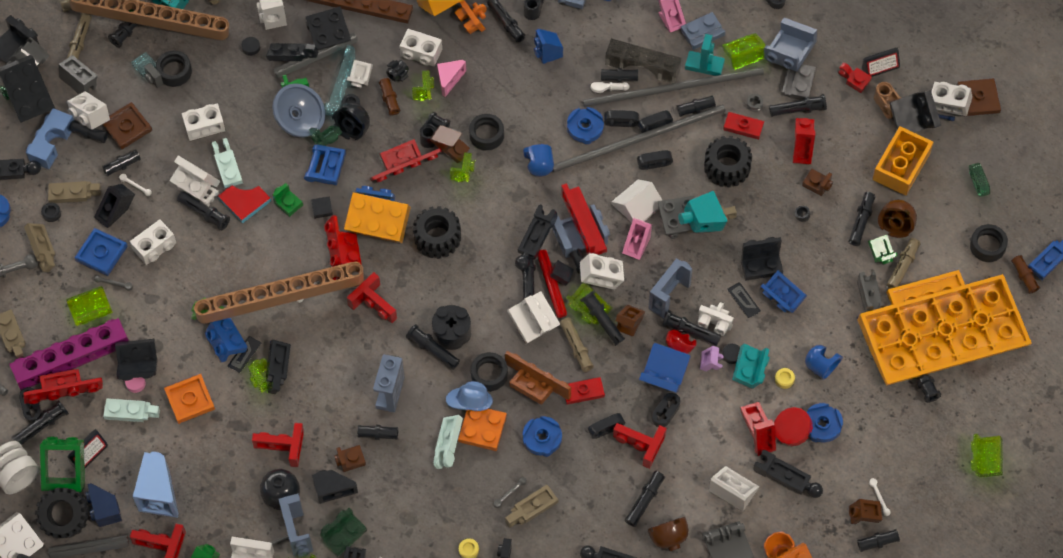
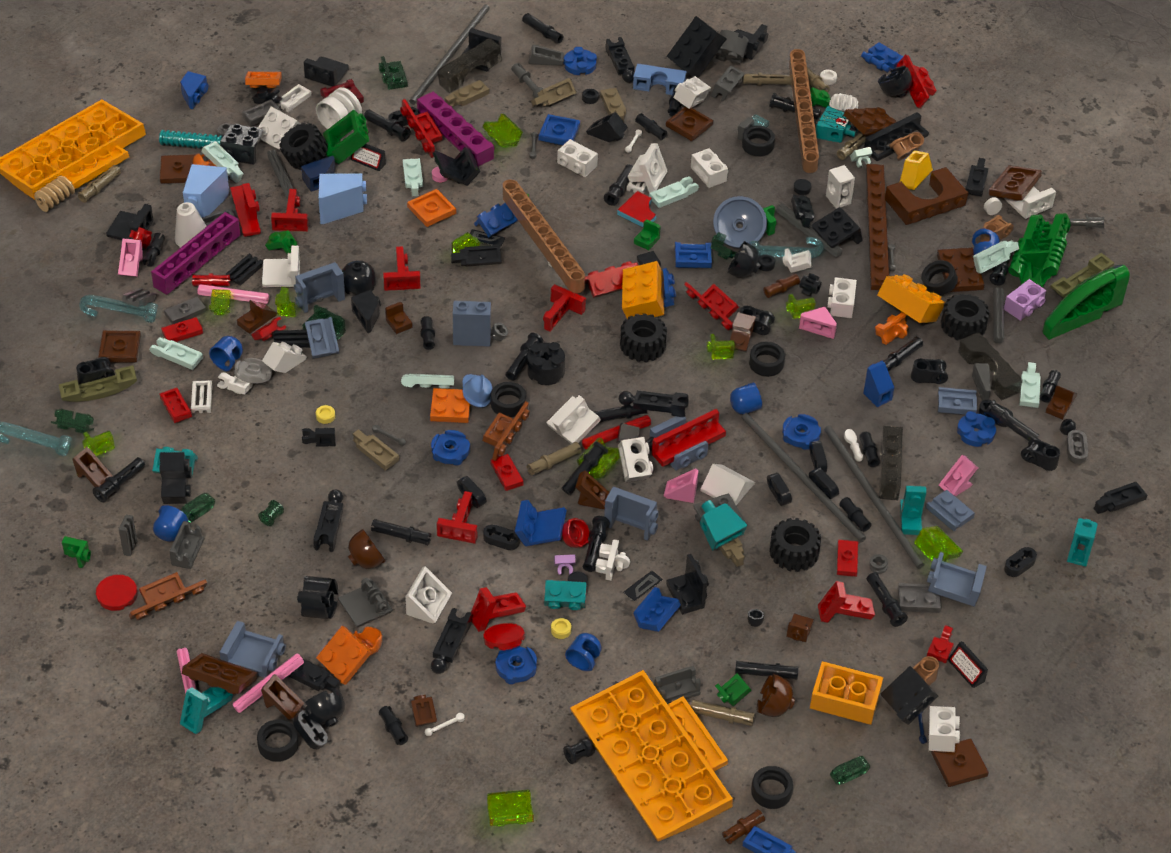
camera: 75 degrees right, 15 degrees down
(365, 535) = (321, 337): none -> sand blue plate

